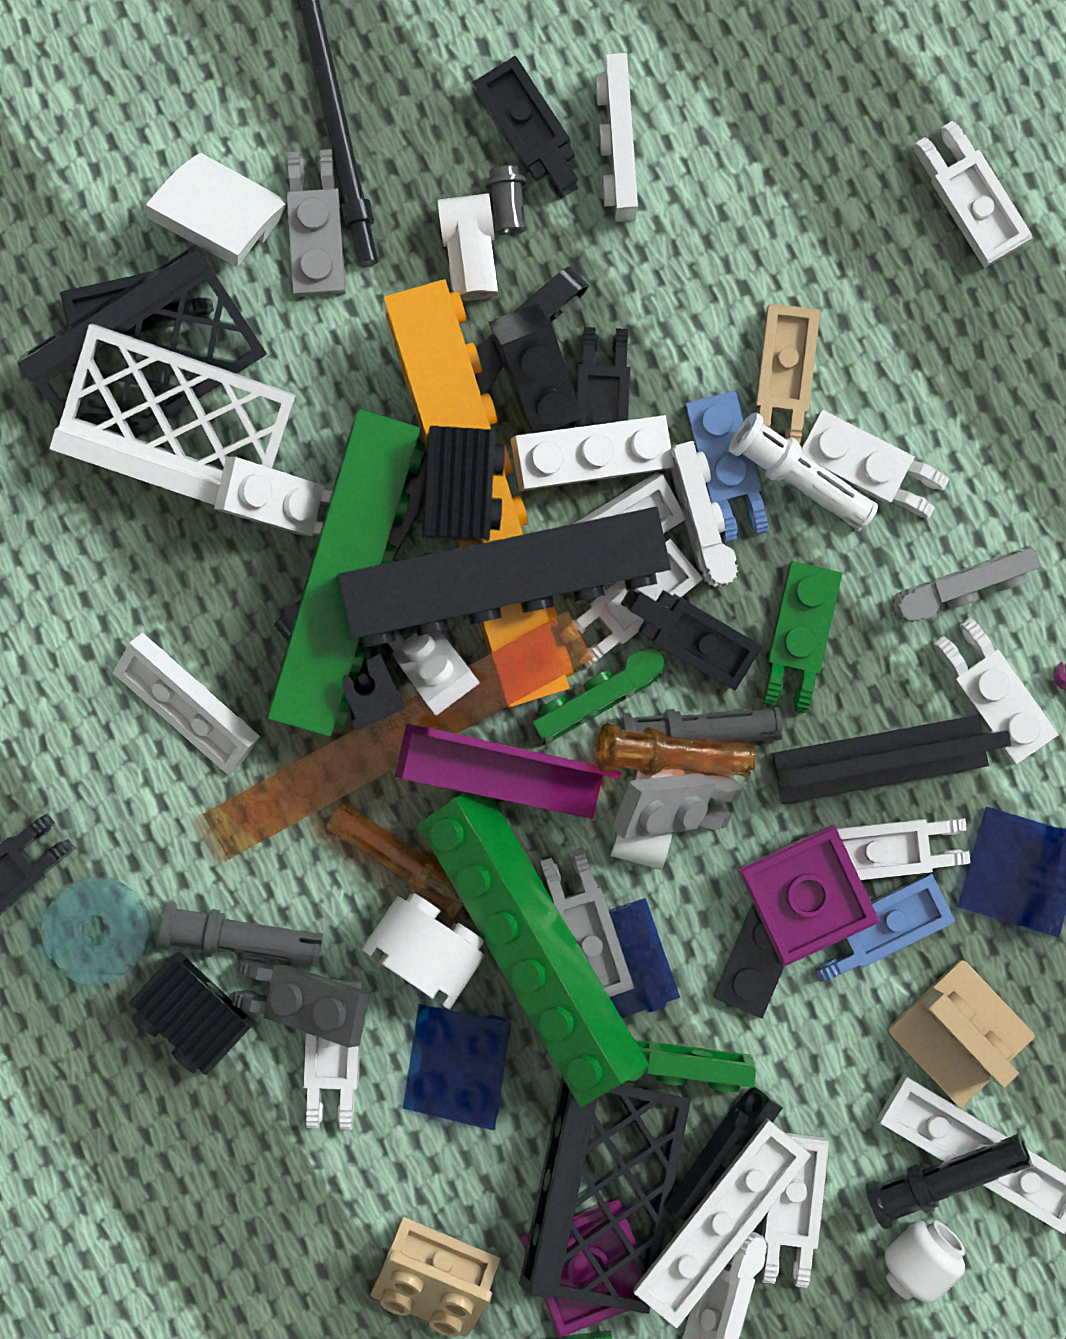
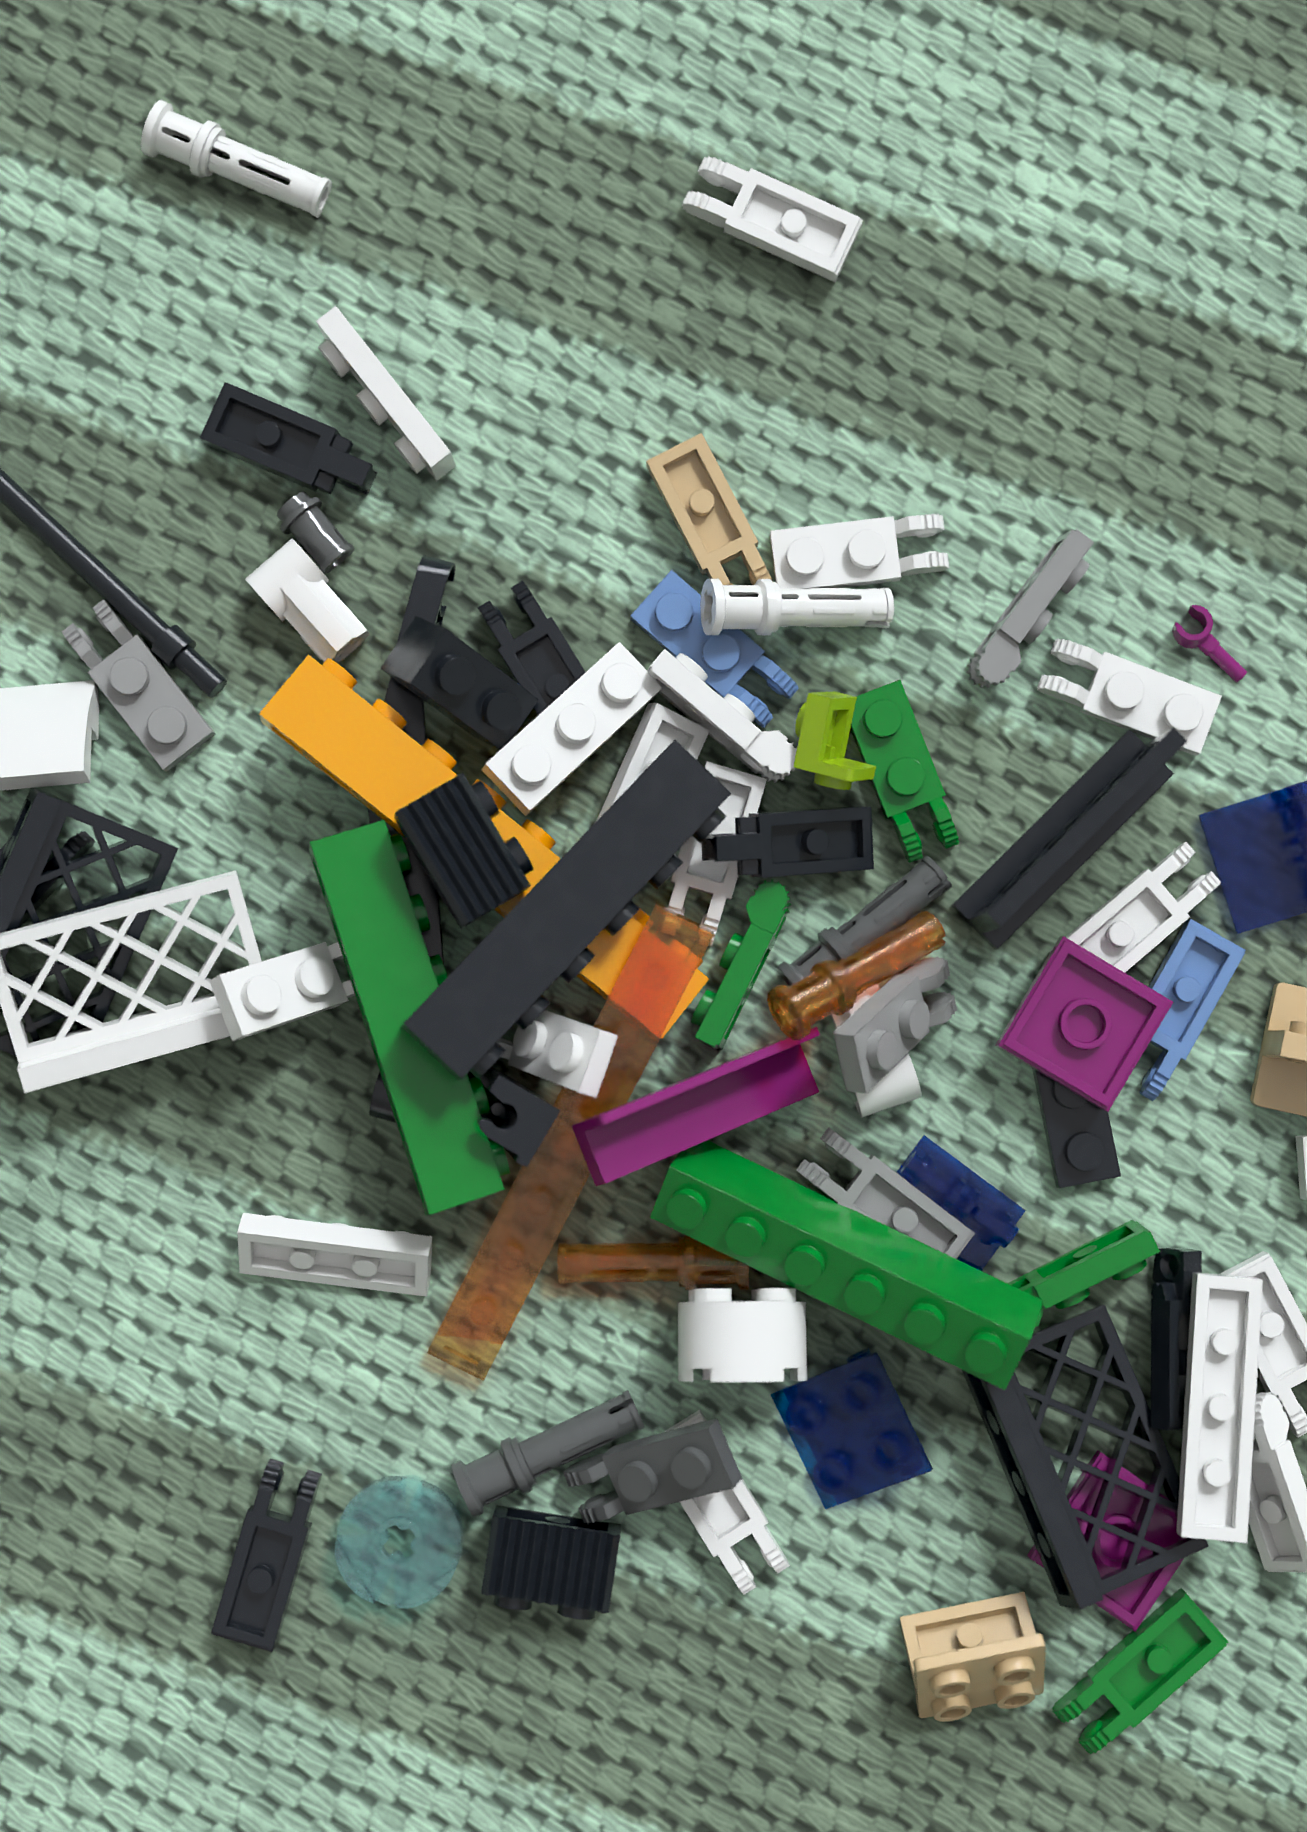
camera: 30 degrees left, 0 degrees up
(761, 577) = (823, 738): none -> lime bracket

